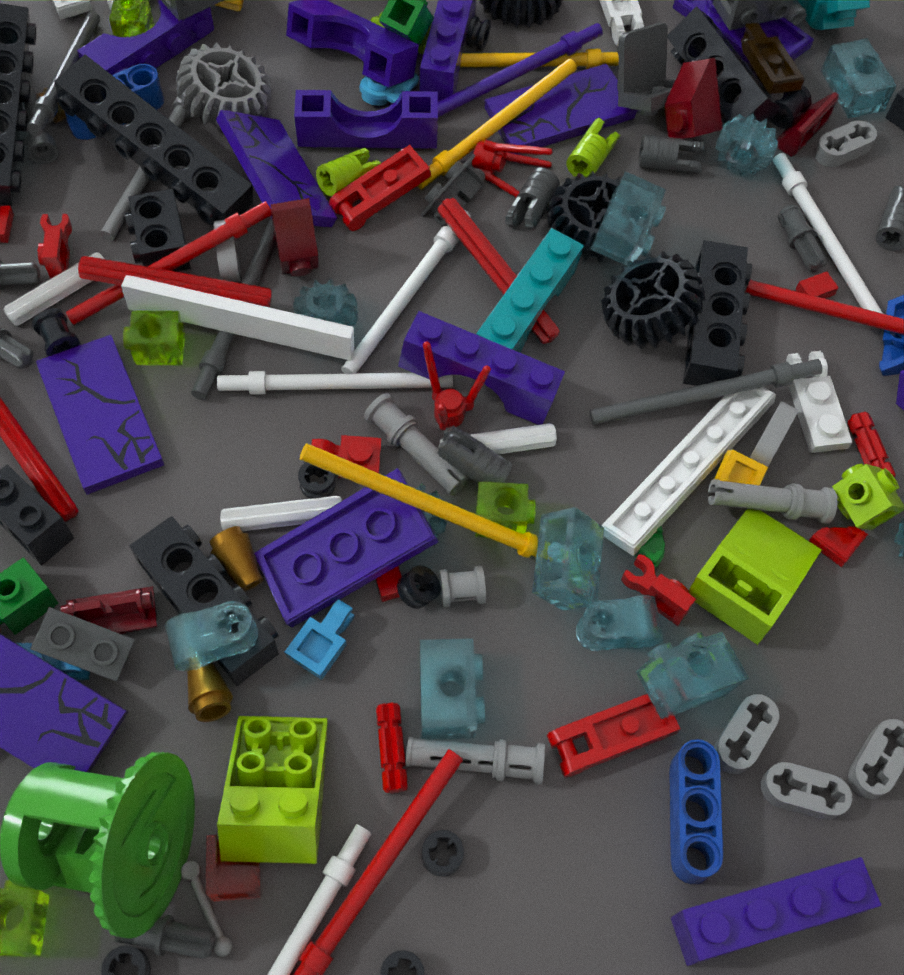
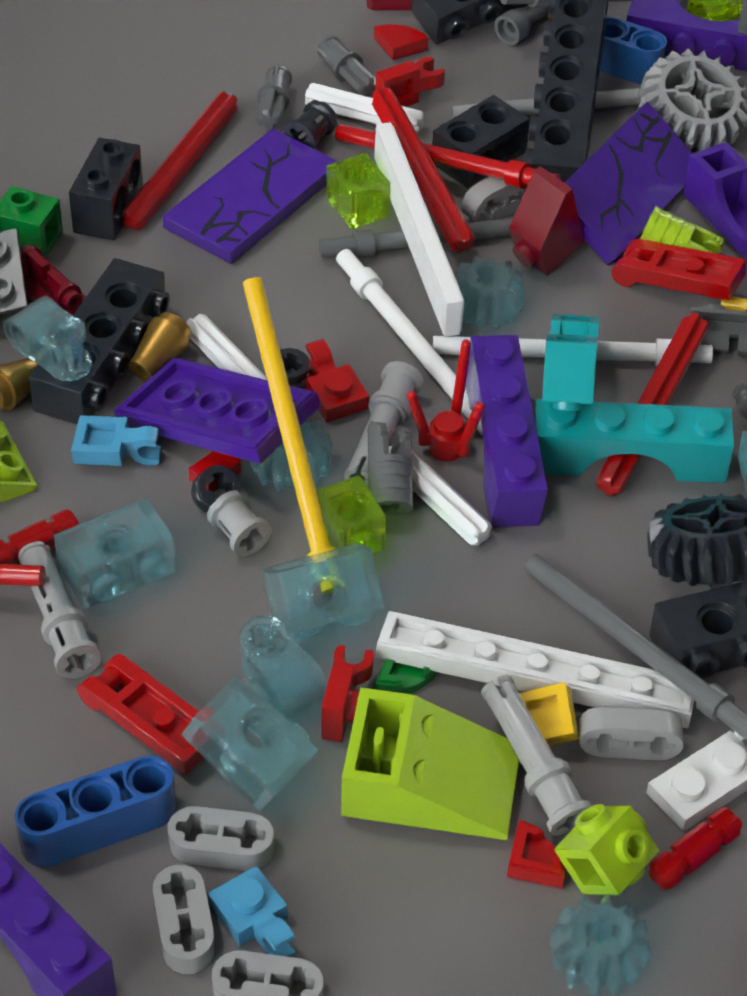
camera: 65 degrees right, 15 degrees down
(497, 296) = (571, 361): none -> teal arch
(816, 743) = (255, 910): none -> dark azure plate

